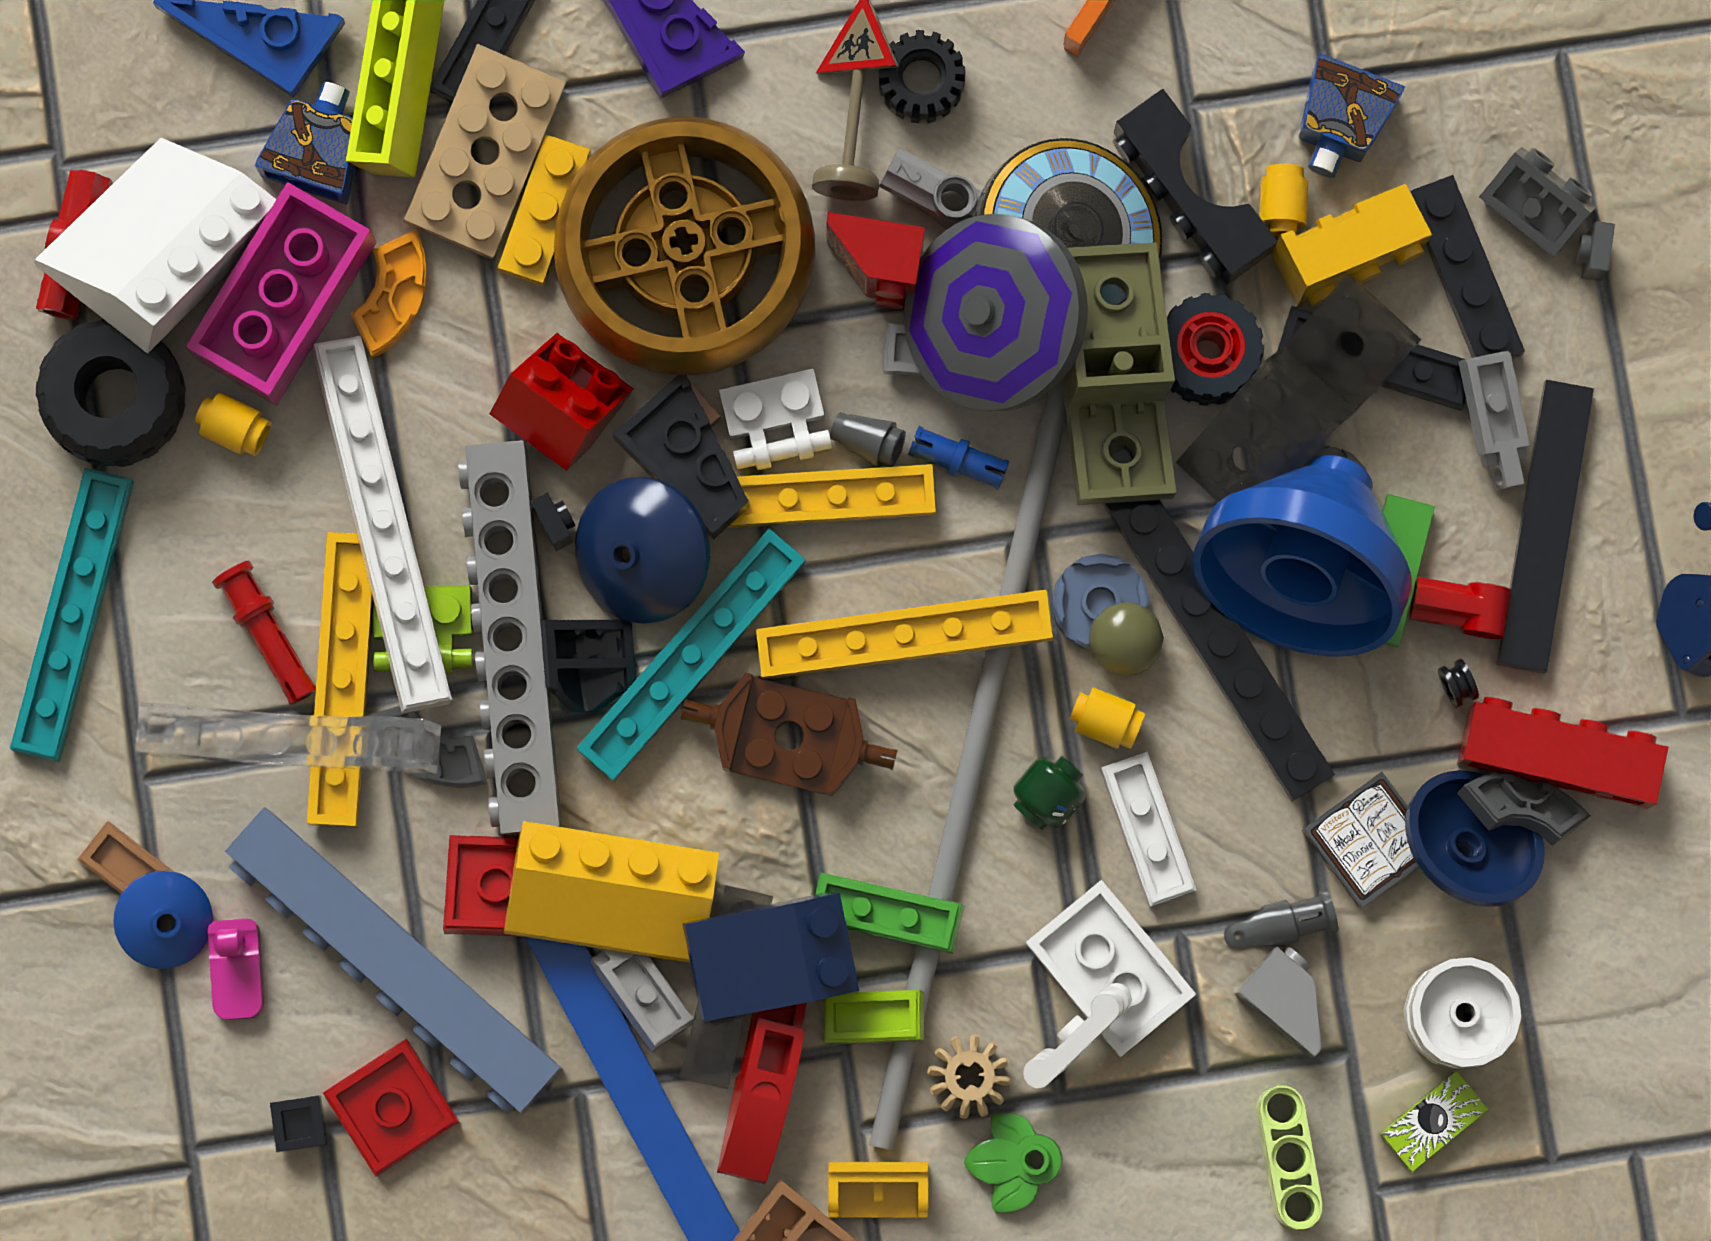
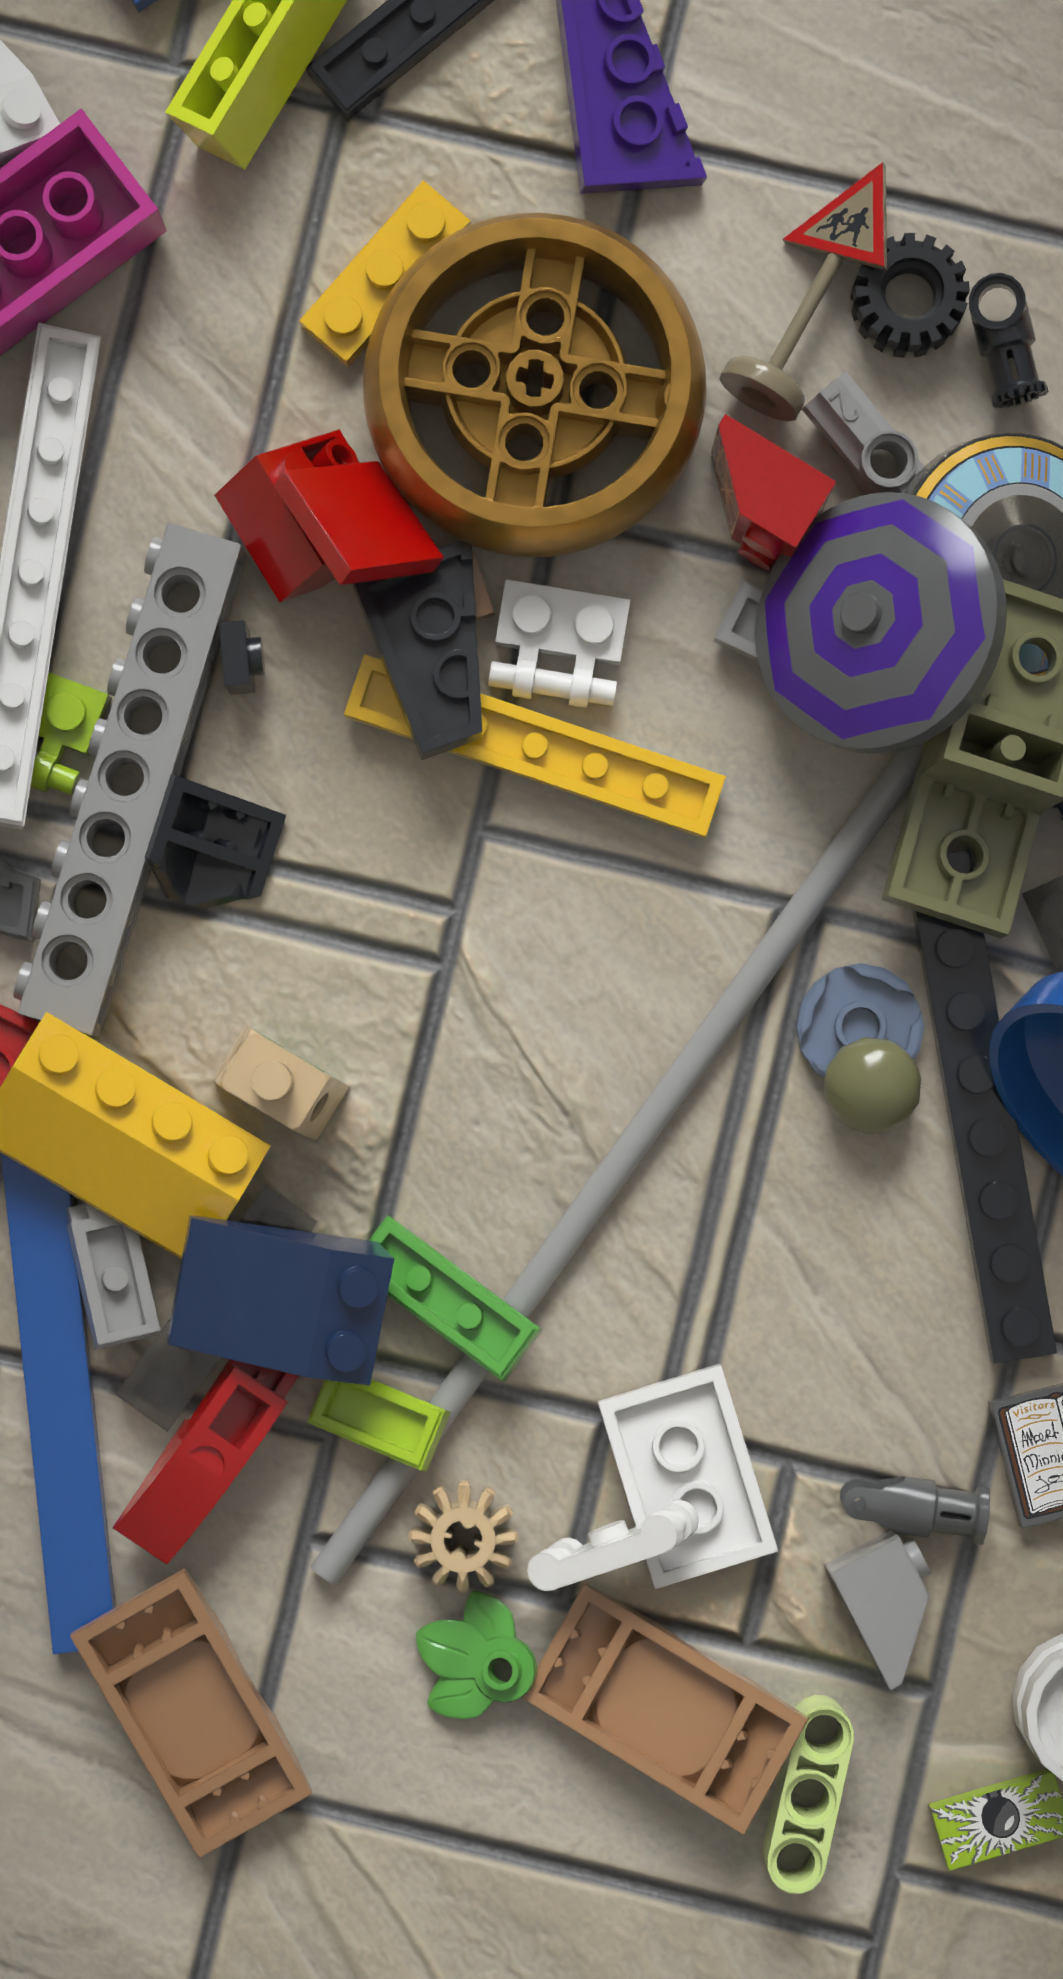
camera: 20 degrees right, 5 degrees up
(312, 146) = (131, 77): torso -> none
(396, 294) = (166, 302): light orange tile -> none
(451, 158) = (332, 127): tan plate -> none
(602, 390) = (358, 522): none -> red tile
(665, 547) = (358, 740): dark blue dish -> none
(691, 655) = (339, 888): teal plate -> none
(706, 808) = (280, 1083): none -> tan torso
(758, 707) = (364, 1022): reddish brown plate -> none
(869, 438) = (663, 713): dark grey cone -> none
(878, 1189) = (299, 1622): yellow hinge -> none
(904, 634) = (607, 970): yellow plate -> none
(958, 457) = (761, 780): blue pin -> none
(1003, 80) = (1007, 340): none -> black connector
(1049, 792) = (702, 1233): dark green head -> none
(1107, 718) = (809, 1172): yellow brick -> none
(1148, 829) = (803, 1325): white tile -> none
(1162, 1137) = (666, 1707): none -> medium nougat slope

